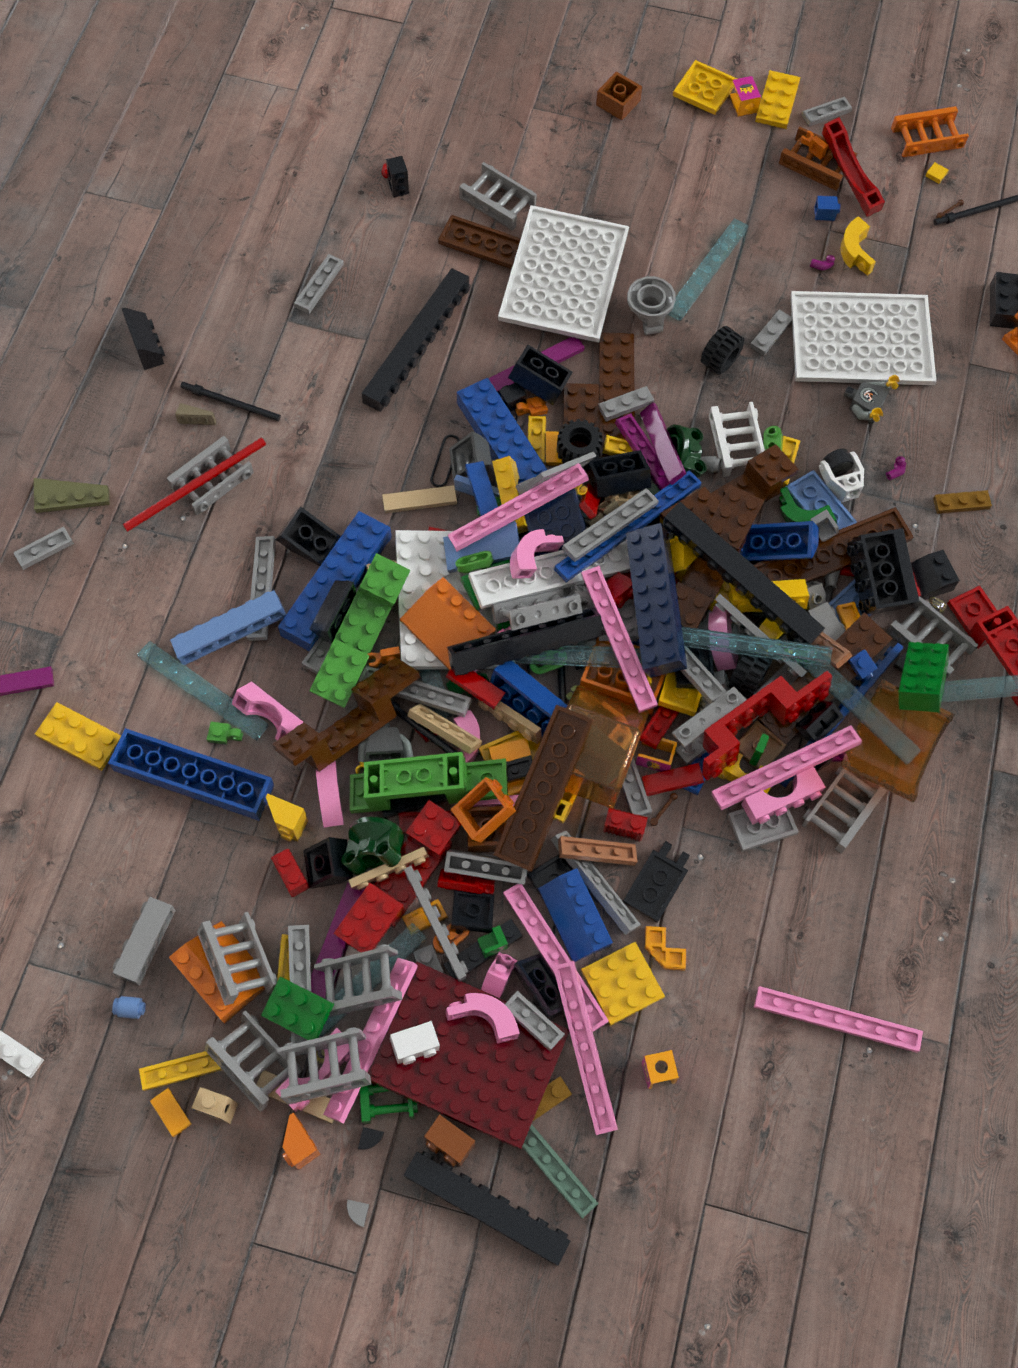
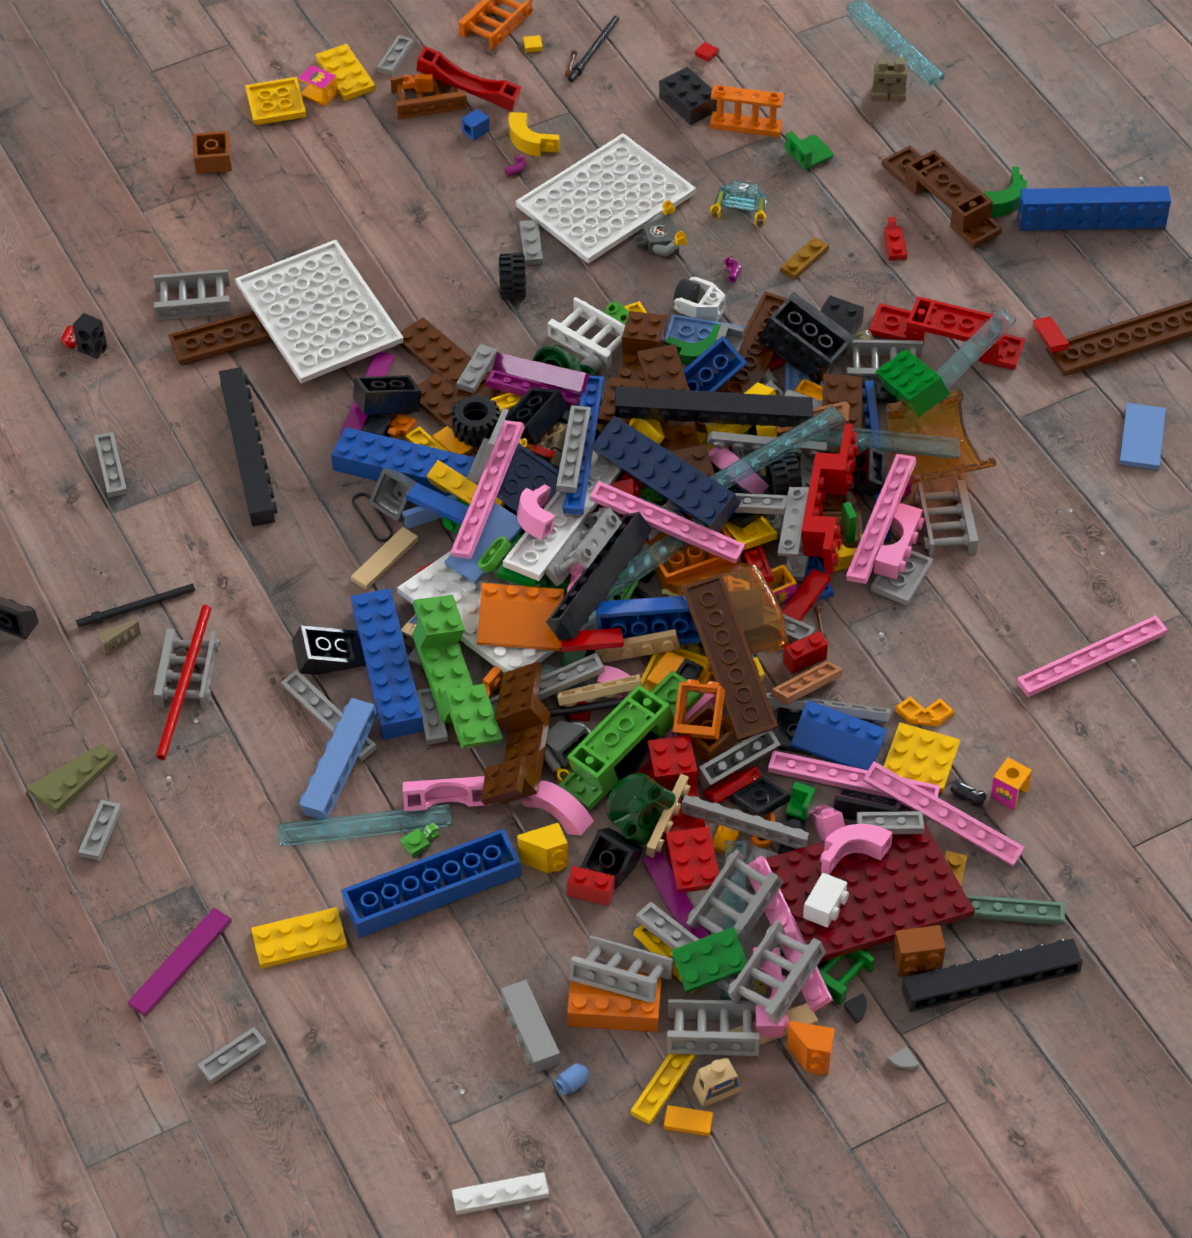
camera: 40 degrees left, 15 degrees down
(333, 610) = (417, 674): black slope -> none
(624, 1046) = (968, 793): none -> black arm
(651, 301) = (419, 281): light grey piece -> none
(657, 883) = (871, 672): black tile -> none
(708, 268) = (429, 232): clear light blue tile -> none
(862, 665) = (861, 410): blue bracket -> none
(963, 414) = (743, 196): none -> clear light blue torso

